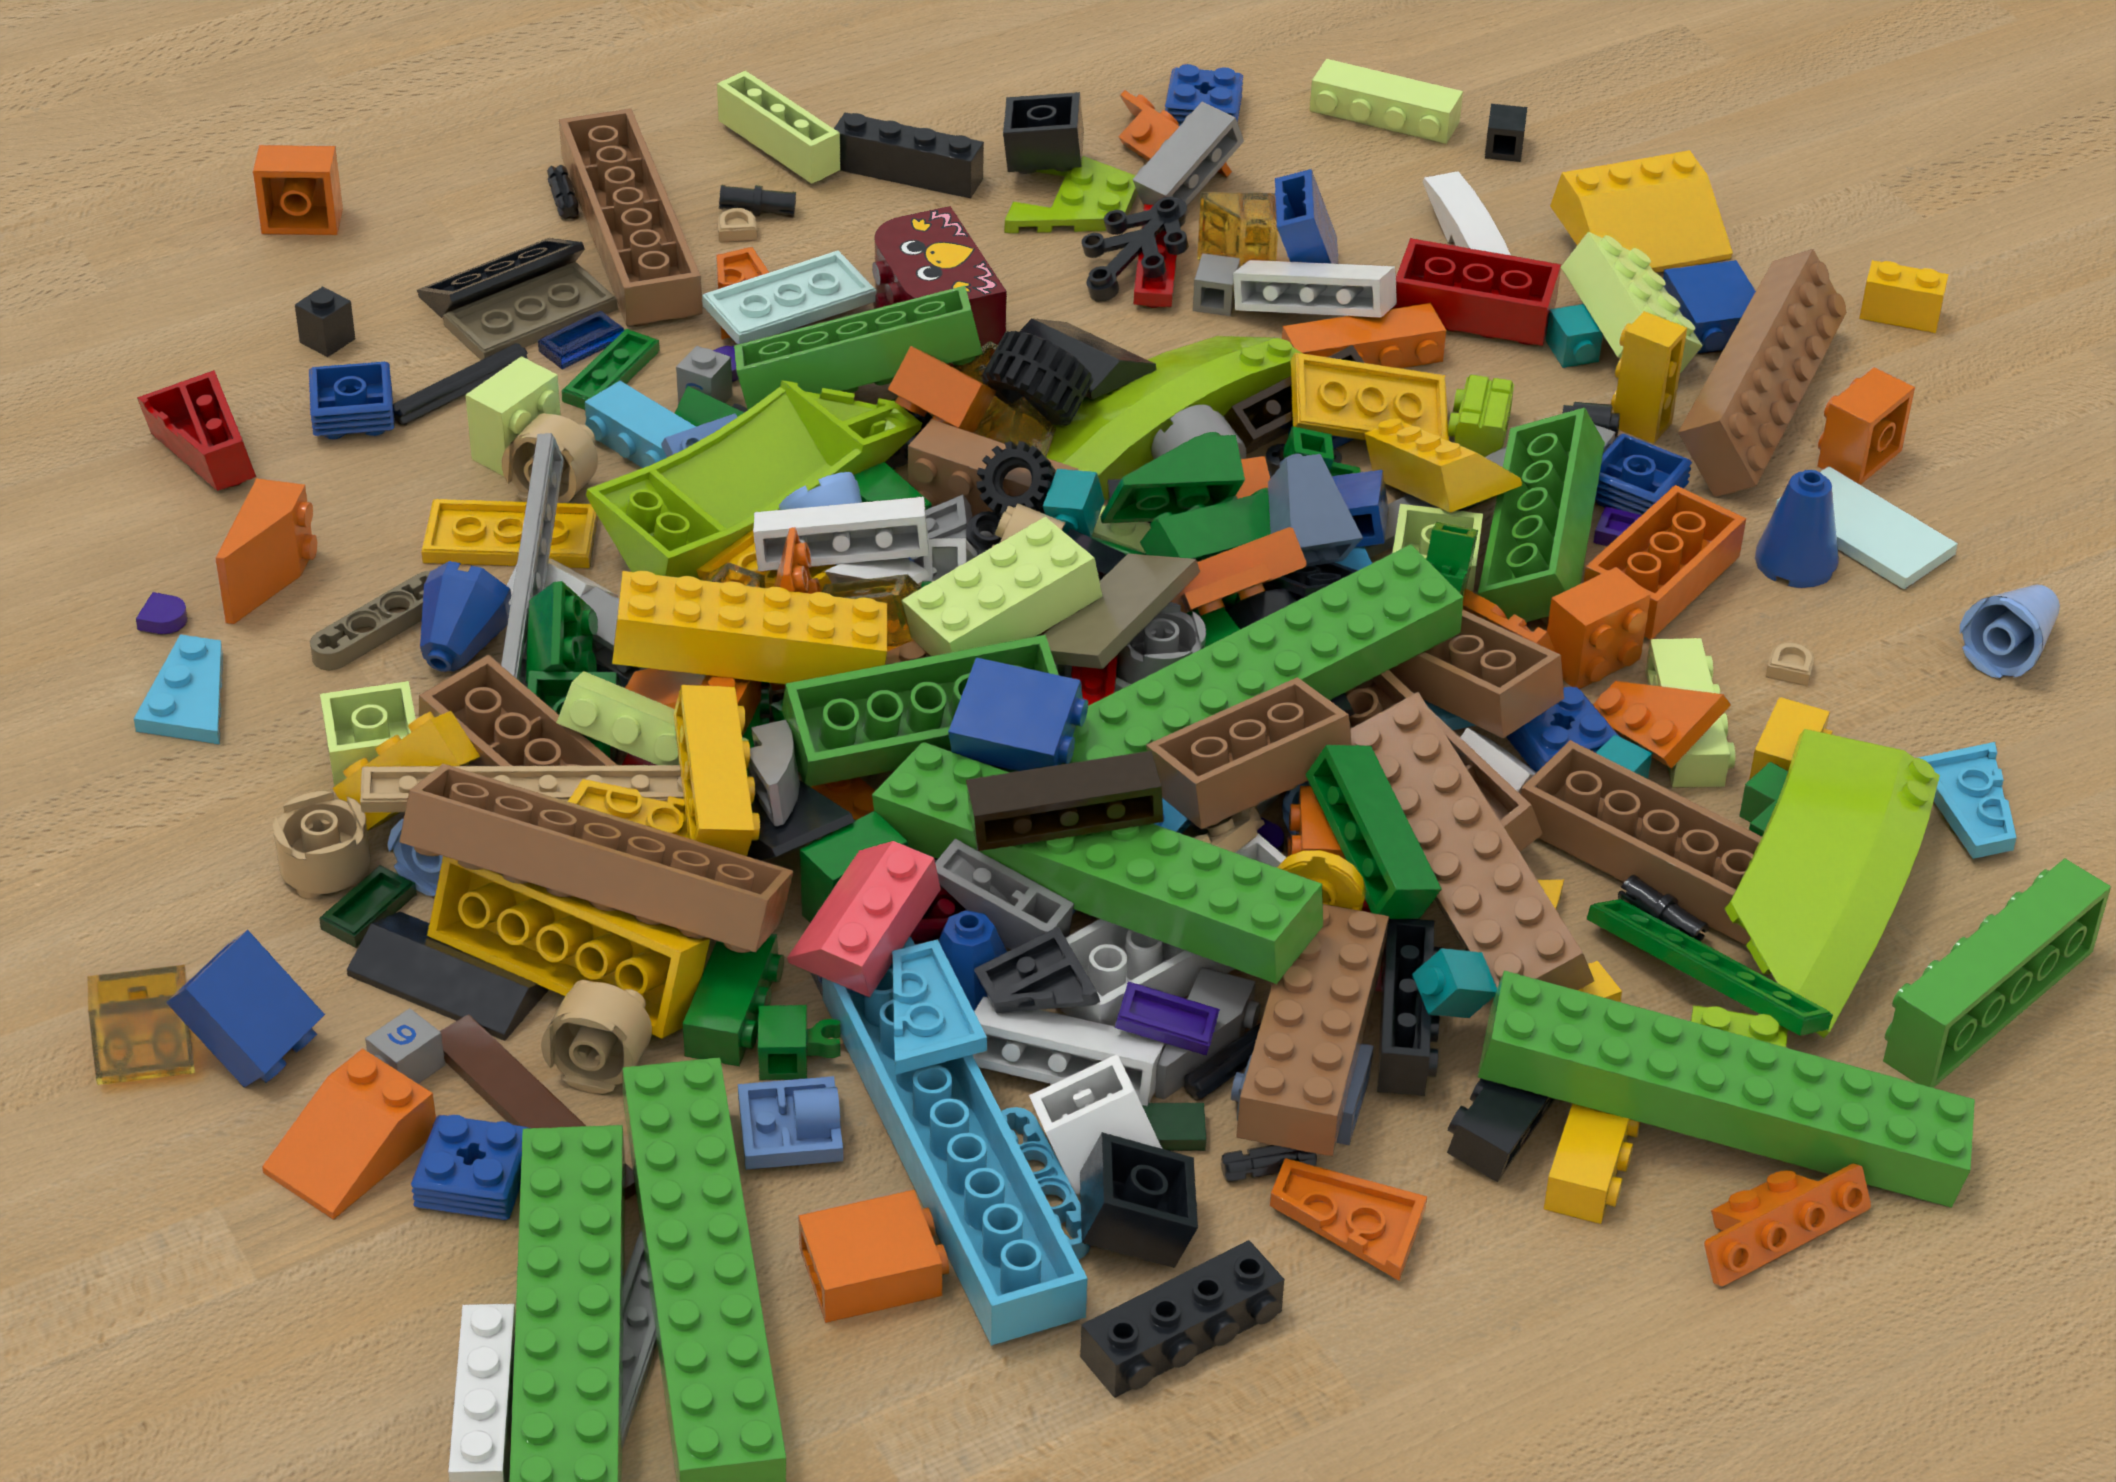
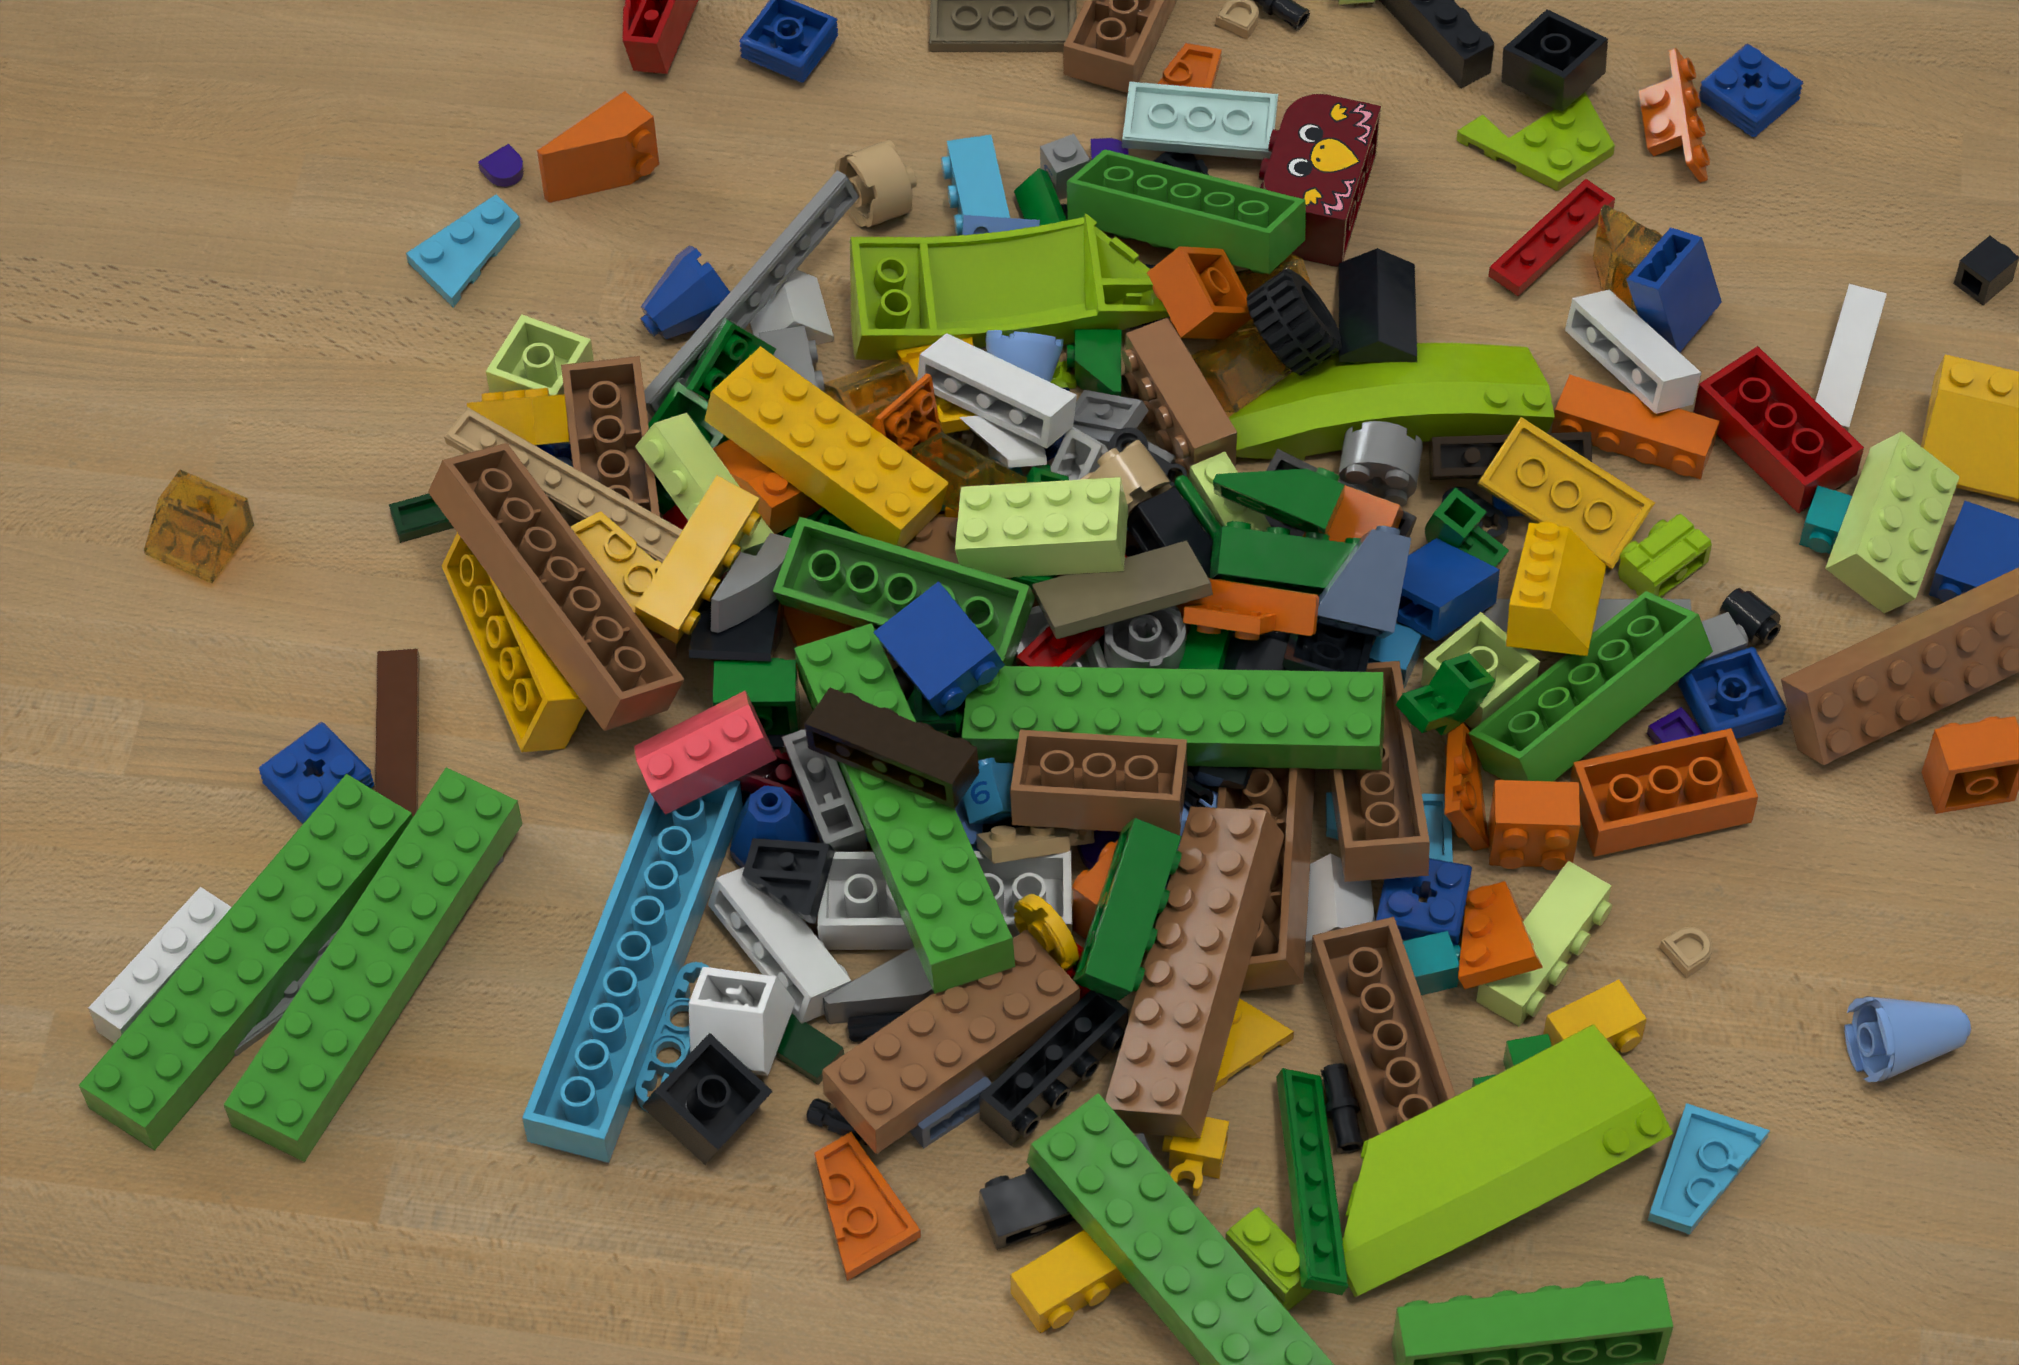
camera: 40 degrees right, 15 degrees up
(247, 1010) = (262, 560): blue brick -> none
(322, 844) = (420, 440): tan brick -> none
(340, 644) = (644, 253): dark tan beam -> none
(352, 1134) = (260, 700): orange slope -> none
(408, 1046) = (346, 654): light grey brick -> none
(429, 973) = (427, 603): black slope -> none
(455, 385) = (888, 64): black axle -> none
(492, 532) = (772, 207): yellow tile -> none
(506, 406) = (884, 114): yellowish green brick -> none
(580, 339) = (1018, 69): clear blue tile -> none
(597, 1035) = (471, 725): tan brick -> none
(615, 363) = (1016, 112): green tile -> none
(727, 1002) = (589, 755): green brick -> none
(787, 1042) = (602, 809): green brick -> none
(790, 1122) = (549, 876): medium blue plate -> none
(872, 1255) = (503, 1019): orange brick -> none
(930, 1010) = (687, 856): medium azure wing -> none
(1001, 464) = (1186, 424): black tyre -> none
(1075, 499) = (1195, 464): teal brick -> none
(1165, 215) = (1577, 204): black plant -> none
(1167, 1018) = (856, 966): dark purple tile -> none
(1181, 1318) = (663, 1210): black brick -> none
(1189, 156) = (1655, 155): light grey brick -> none
(1215, 284) = (1559, 290): light grey brick -> none
(1386, 101) = (1910, 178): yellowish green brick -> none
(1455, 983) = (1079, 1073): teal brick -> none
(1648, 376) = (1817, 607): yellow brick -> none
(1801, 533) = (1806, 840): blue cone -> none
(1883, 534) = (1893, 859): light aqua tile -> none

